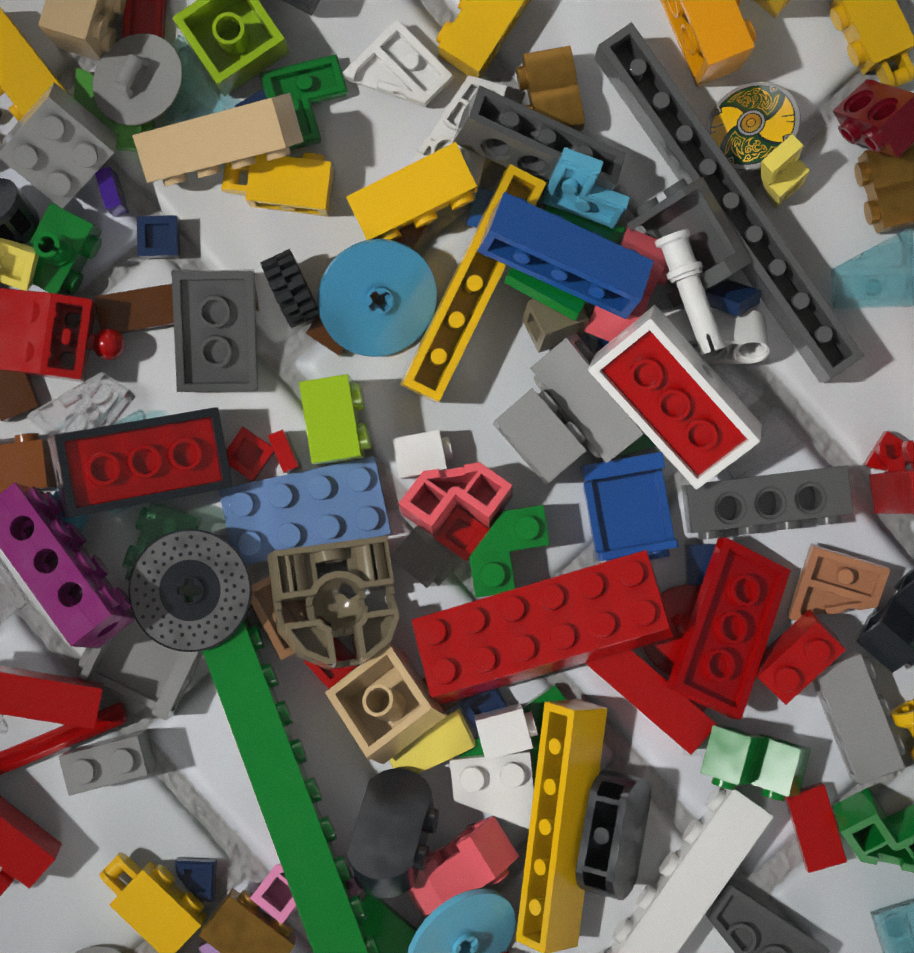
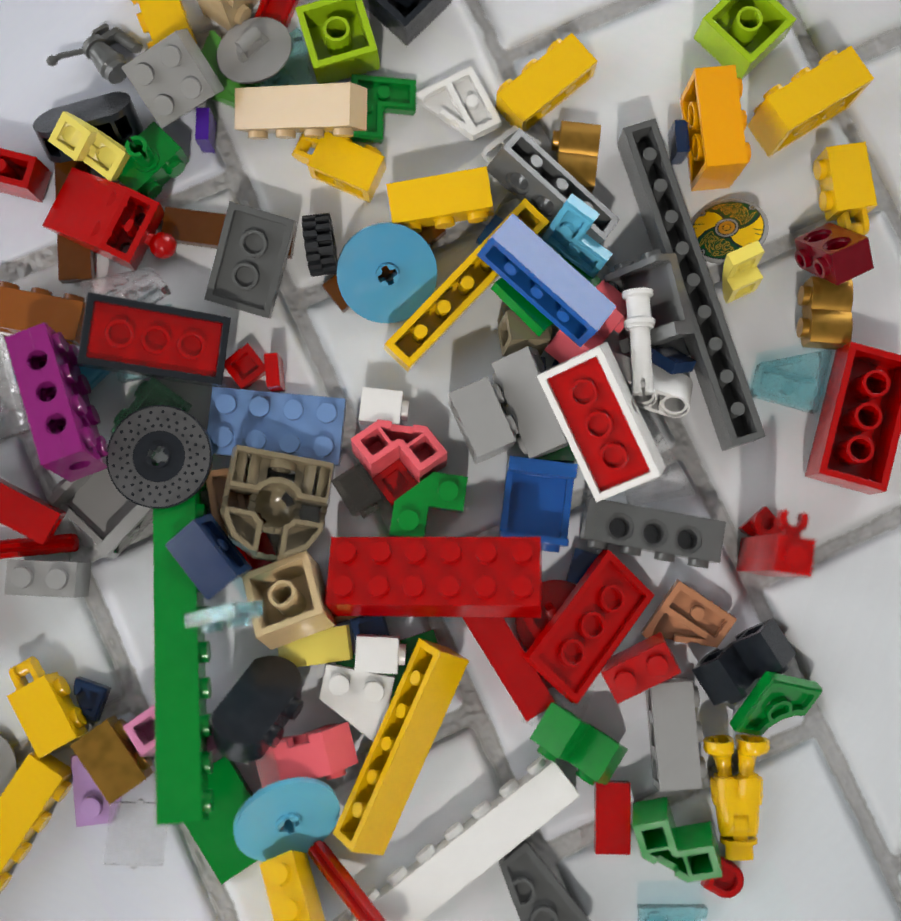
camera: 15 degrees right, 5 degrees down
(158, 236) = (230, 176): dark blue plate -> none
(283, 685) = (208, 555): none -> dark blue panel
(334, 420) = (320, 357): lime brick -> none
(337, 742) = (229, 615): none -> clear light blue wing
(613, 834) = (441, 768): black brick -> none
(665, 35) = (678, 142): none -> dark blue tile

